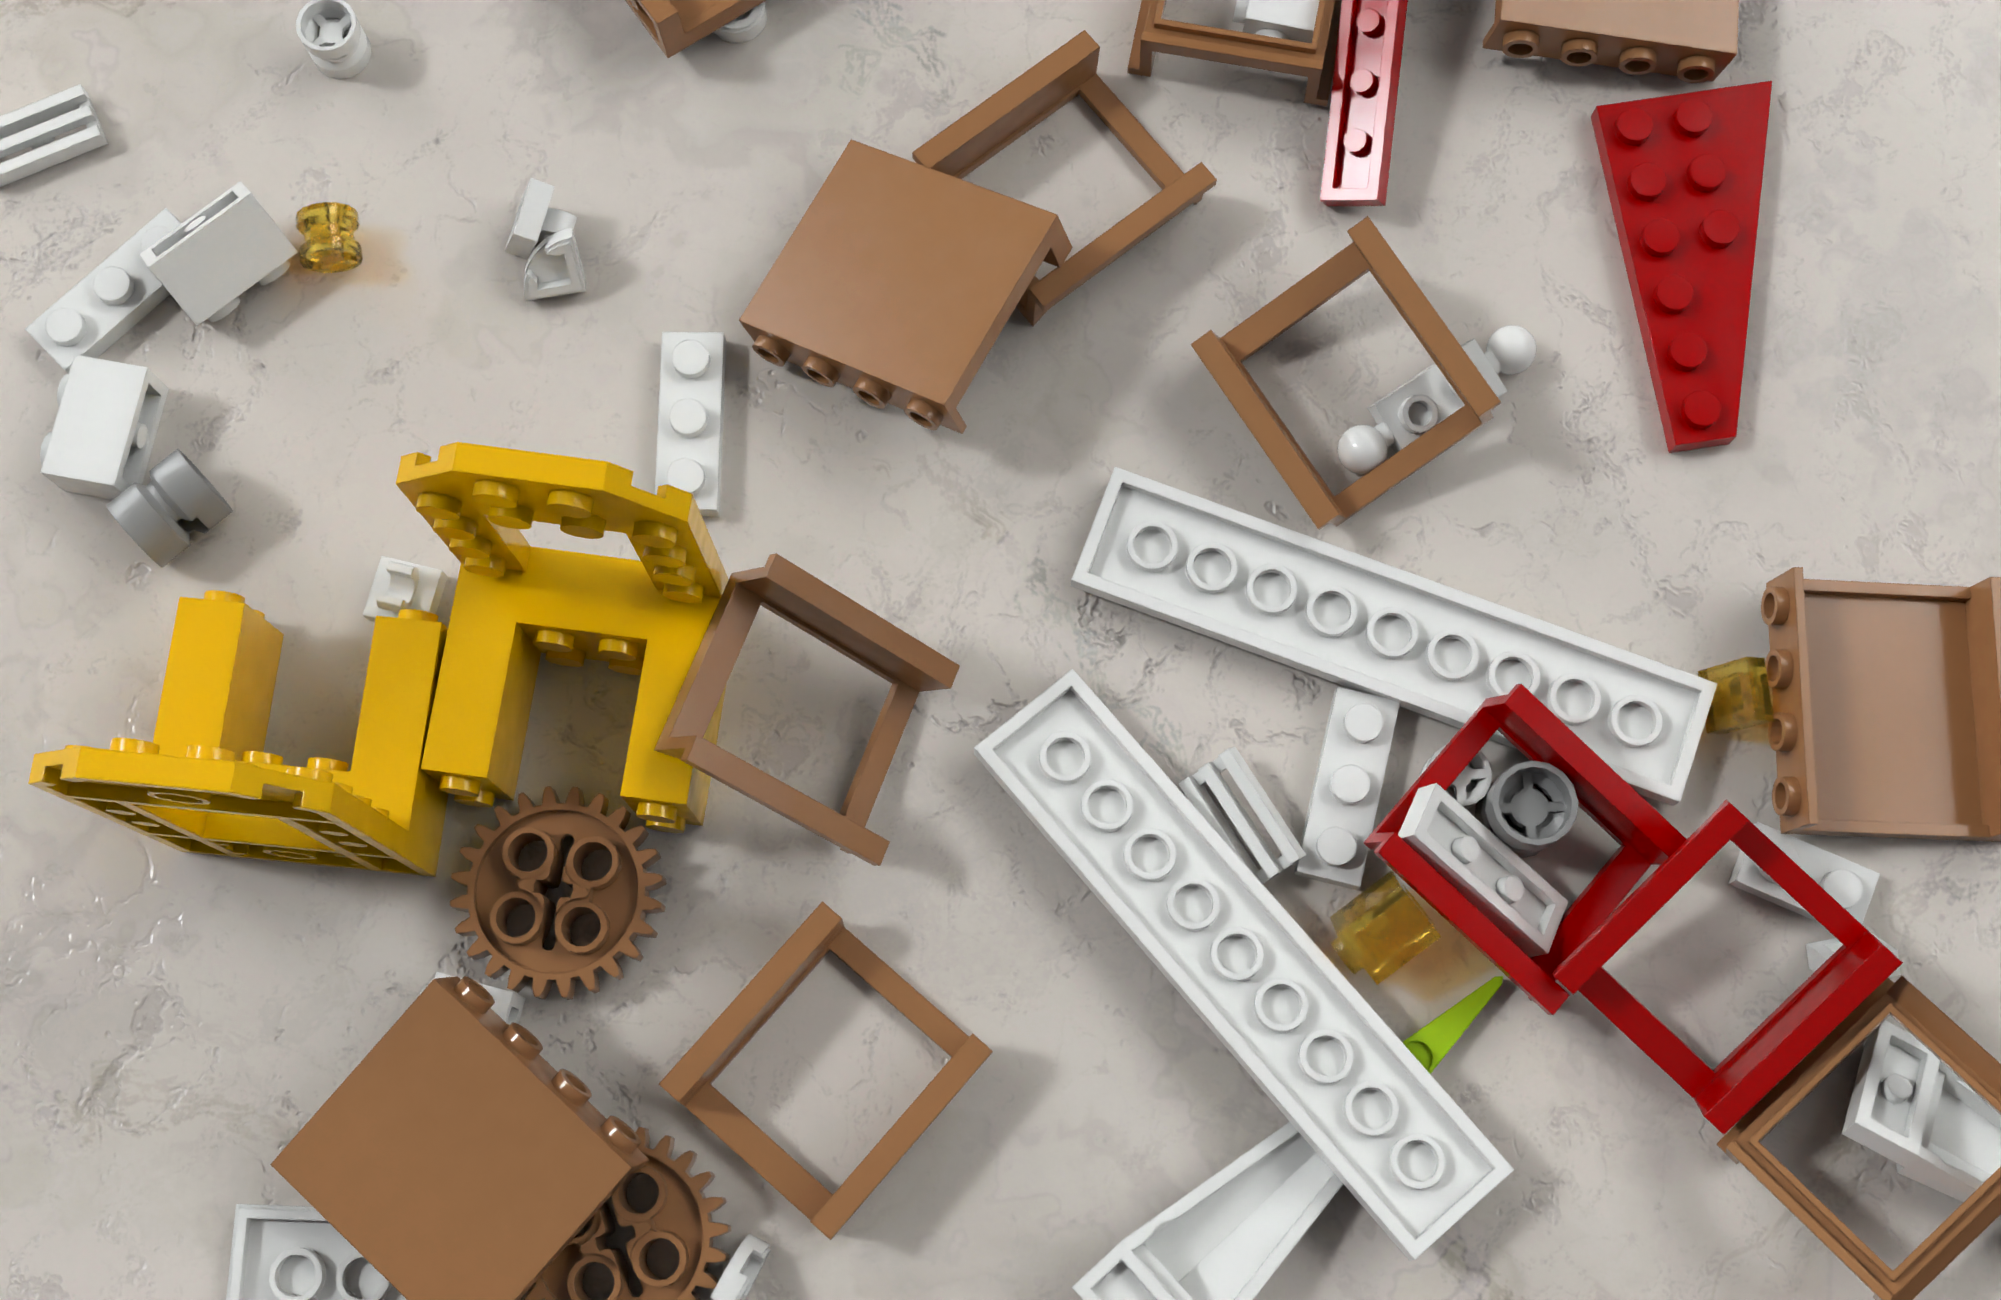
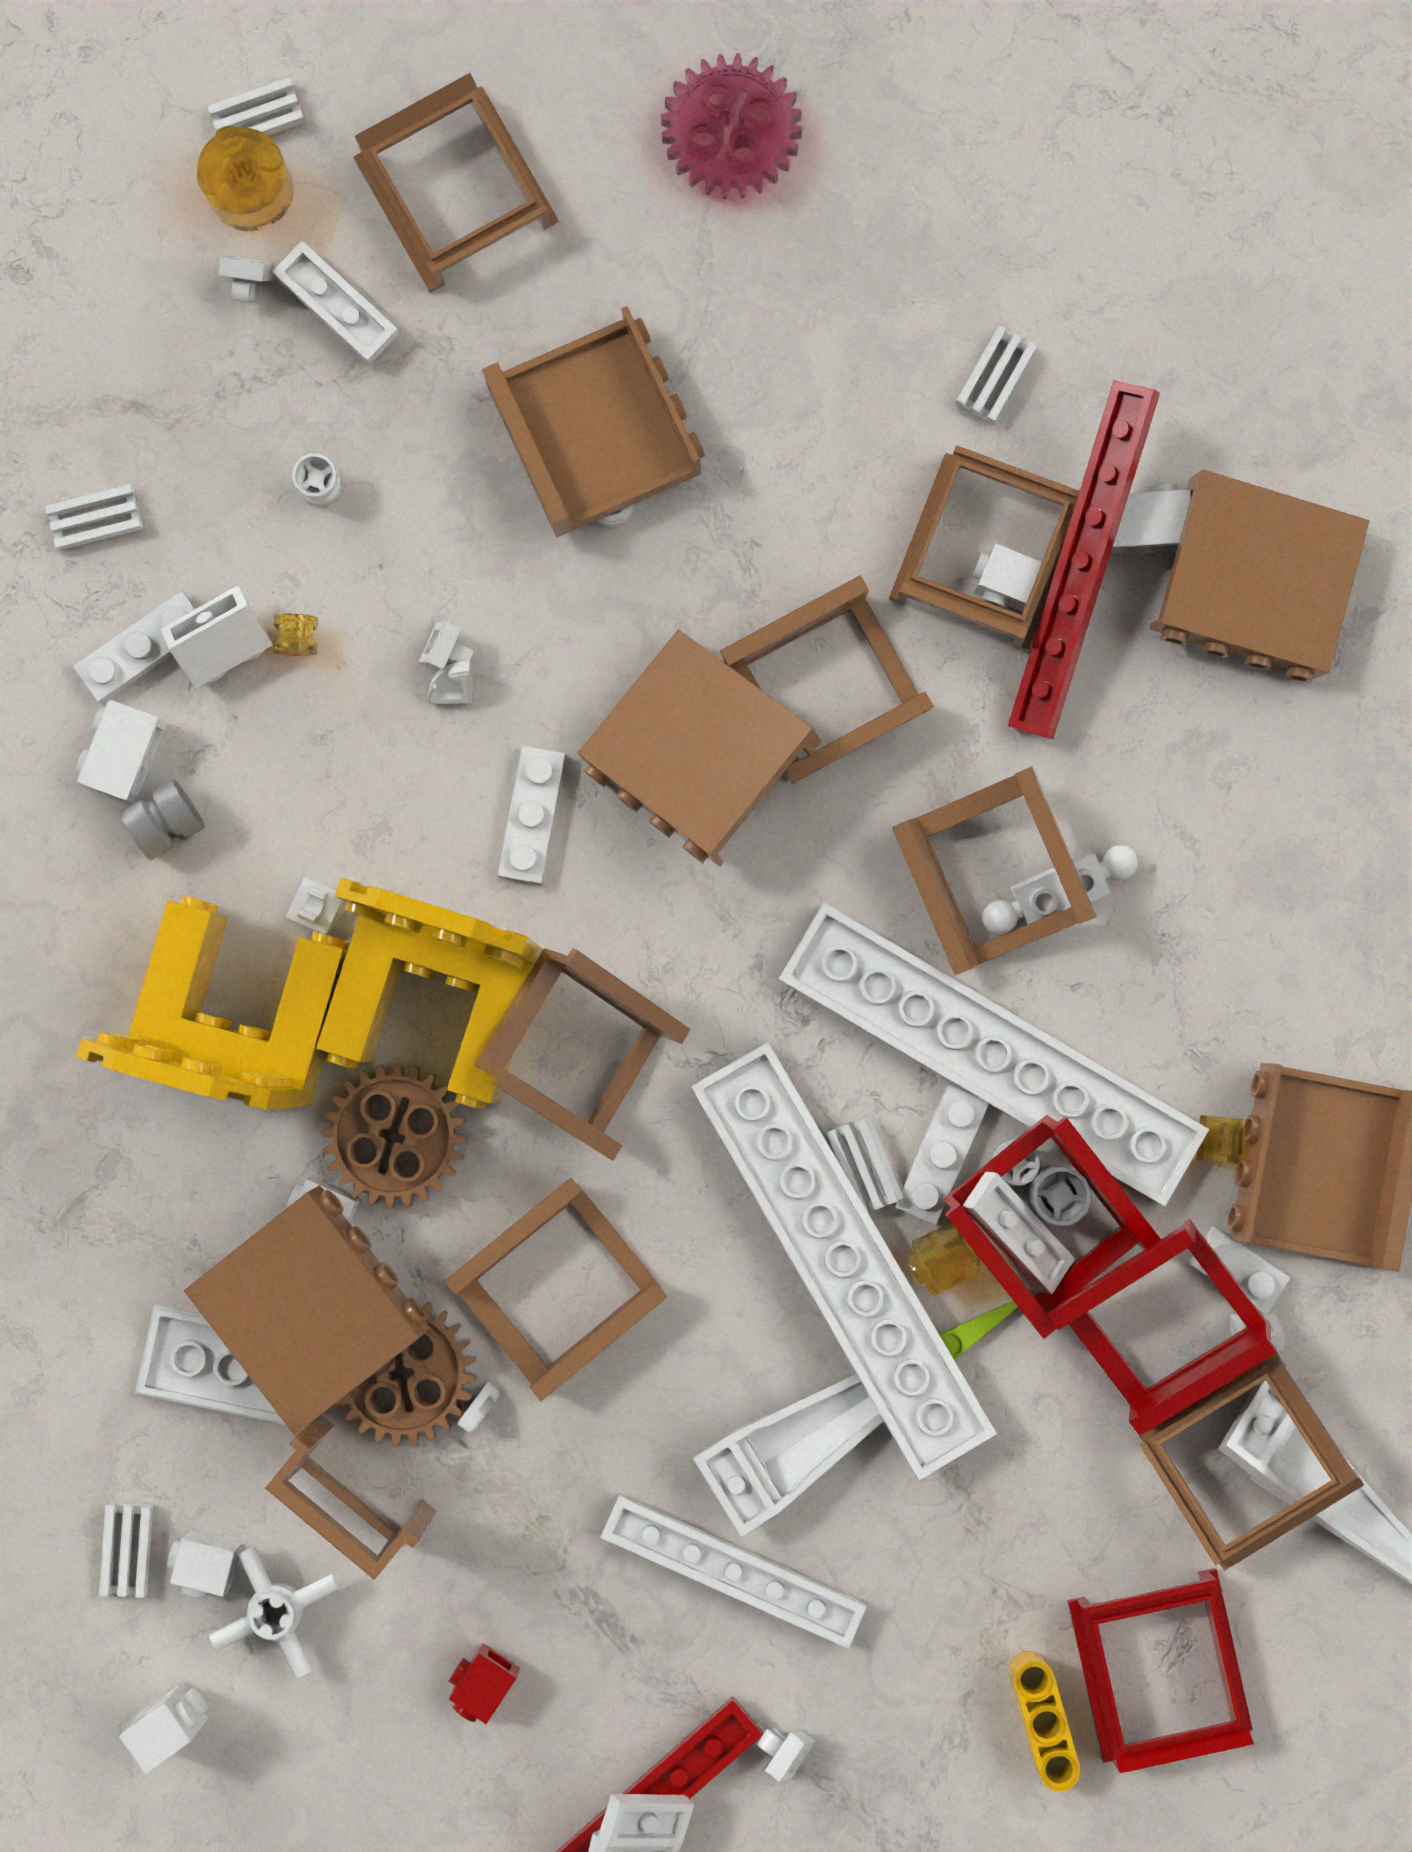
camera: 10 degrees right, 10 degrees up
(1686, 219) = (1269, 781): red wing -> none

